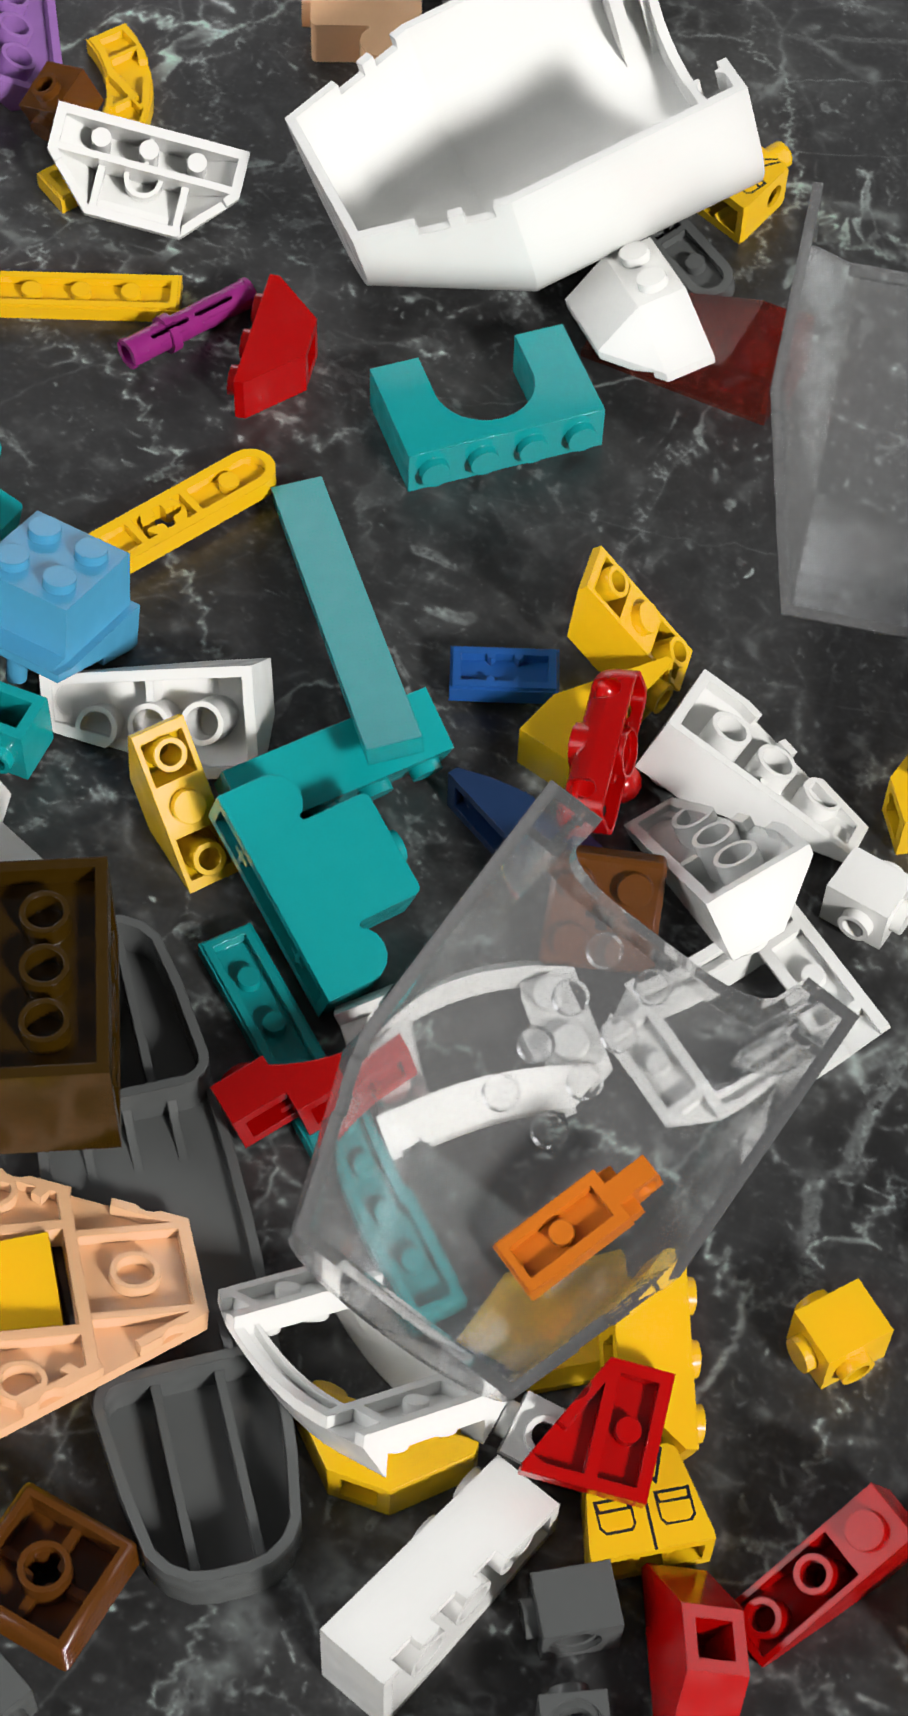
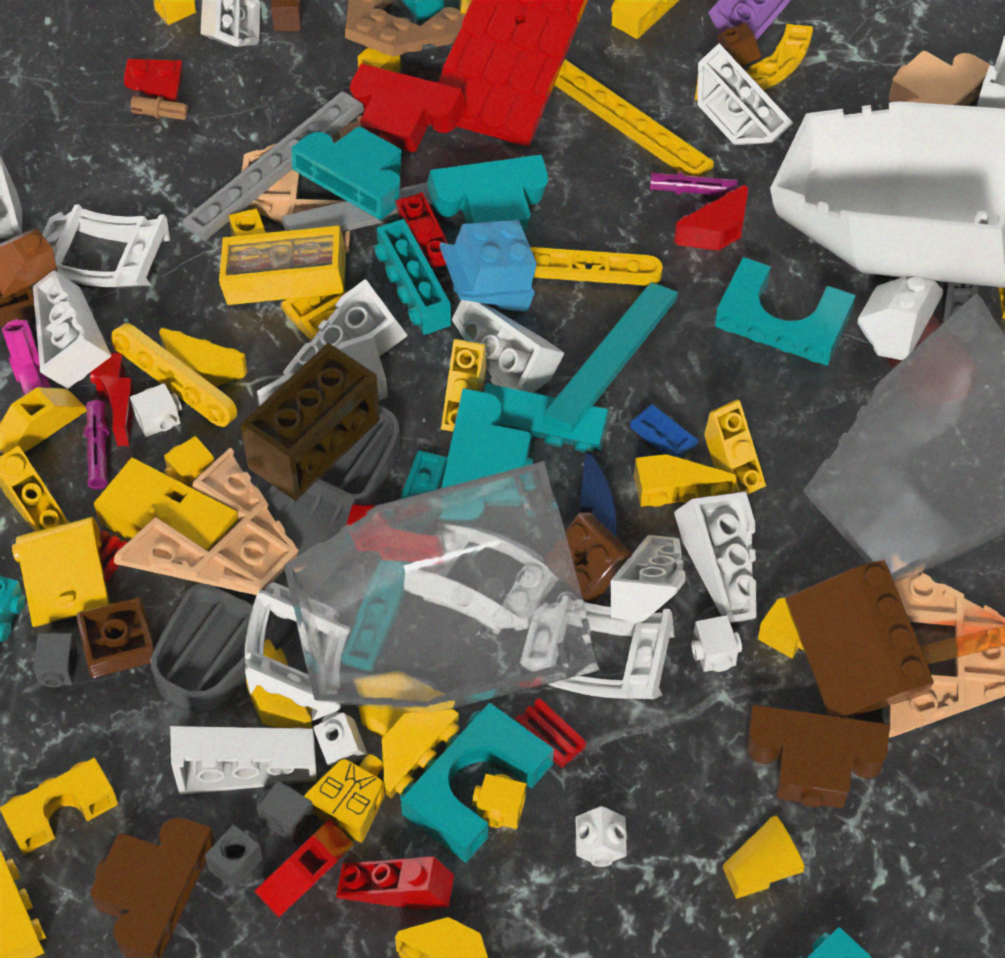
camera: 45 degrees right, 0 degrees up
(576, 1225) = (430, 667): orange hinge -> none
(606, 745) = (654, 493): red piece -> none
(607, 1435) = (353, 752): red wing -> none
(753, 1413) = (487, 738): none -> teal arch
(796, 1177) = (542, 708): none -> red tile

